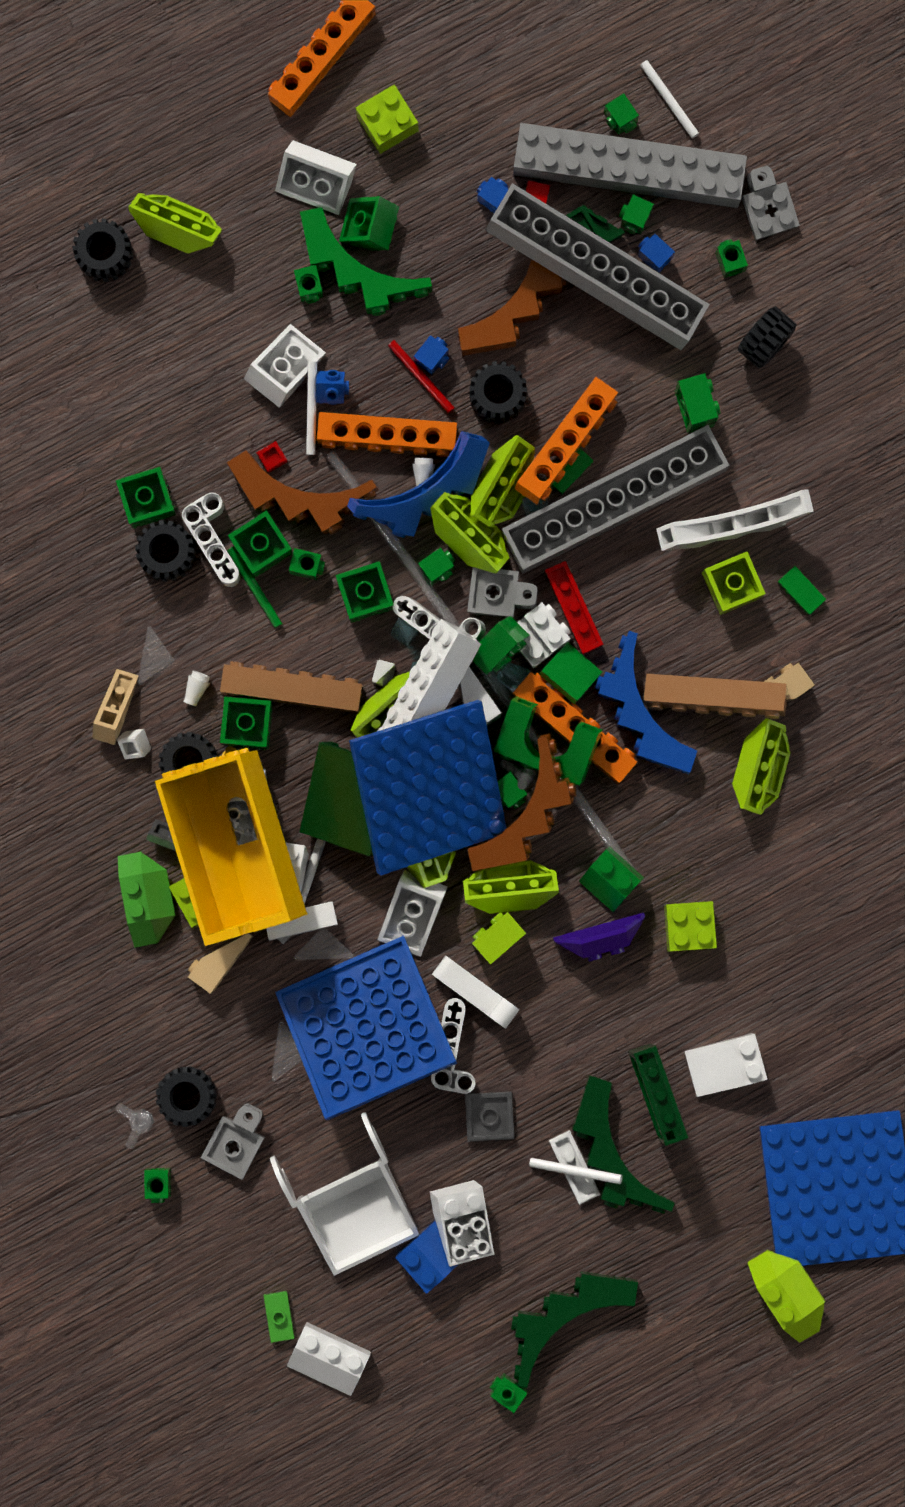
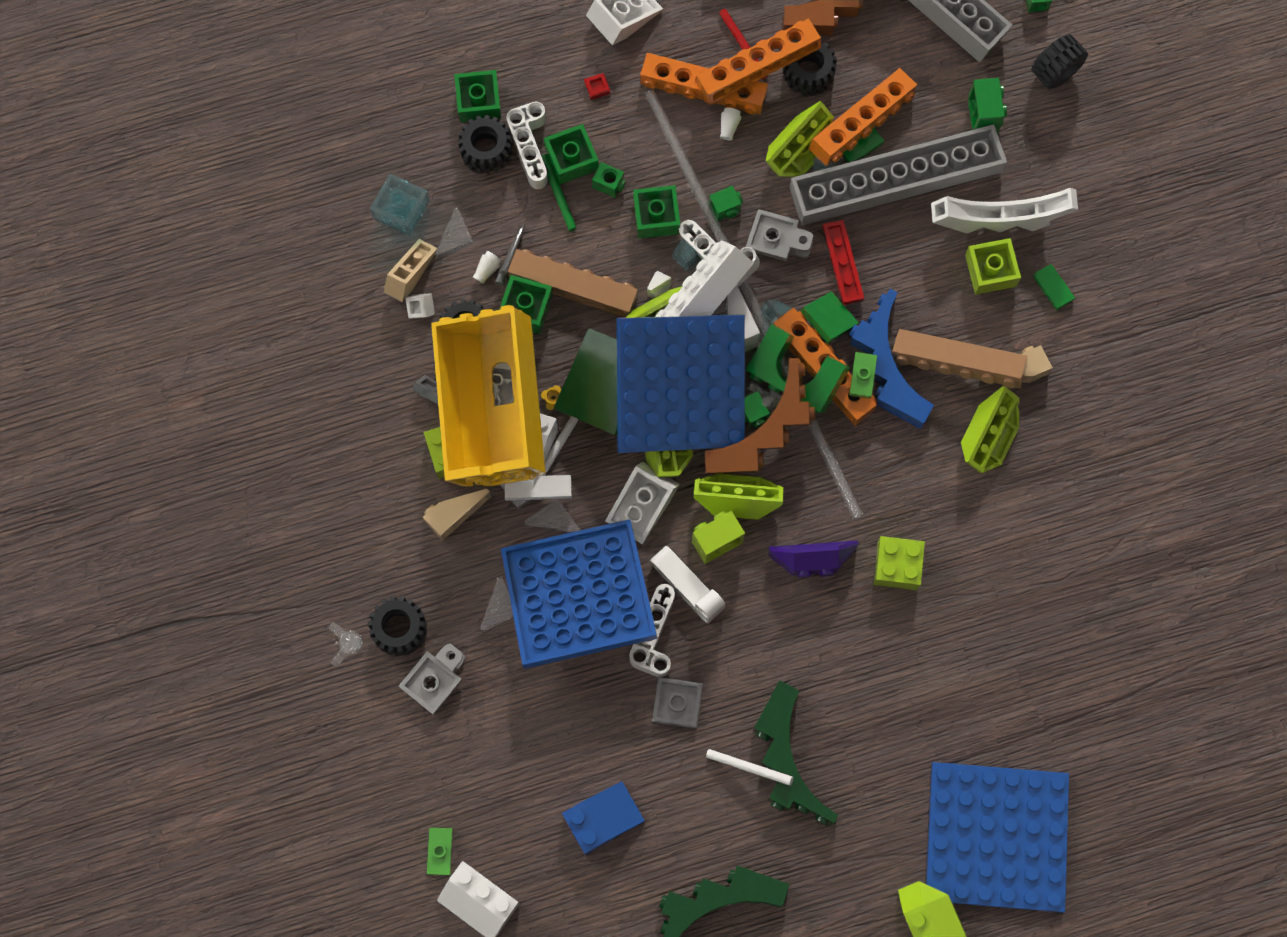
camera: 10 degrees right, 10 degrees down
(88, 637) = (399, 204): none -> clear light blue brick
(145, 898) = (399, 443): bright green wedge -> none
(162, 1174) = (352, 693): green brick -> none
(216, 683) = (503, 272): none -> dark grey bar
(289, 816) = (547, 396): none -> yellow plate
(296, 504) = (612, 126): dark orange arch -> none
(311, 409) = (641, 50): white bar -> none
(331, 387) = (662, 35): blue brick -> none
(356, 1213) = (532, 765): white piece -> none
(432, 355) = (756, 26): blue brick -> none
(438, 415) = (752, 70): none -> orange brick
(455, 475) = (732, 142): blue arch -> none
(462, 1222) = (632, 794): white slope -> none
(466, 536) = (757, 179): lime wedge -> none
(499, 645) = (769, 277): green brick -> none
(544, 632) = (806, 279): white plate -> none
(568, 1153) = (744, 749): white tile -> none
(611, 879) = (832, 506): green slope -> none
(617, 733) = (863, 375): none -> bright green plate
(658, 1094) = (841, 704): dark green window -> none
(725, 1065) = (910, 697): white slope -> none

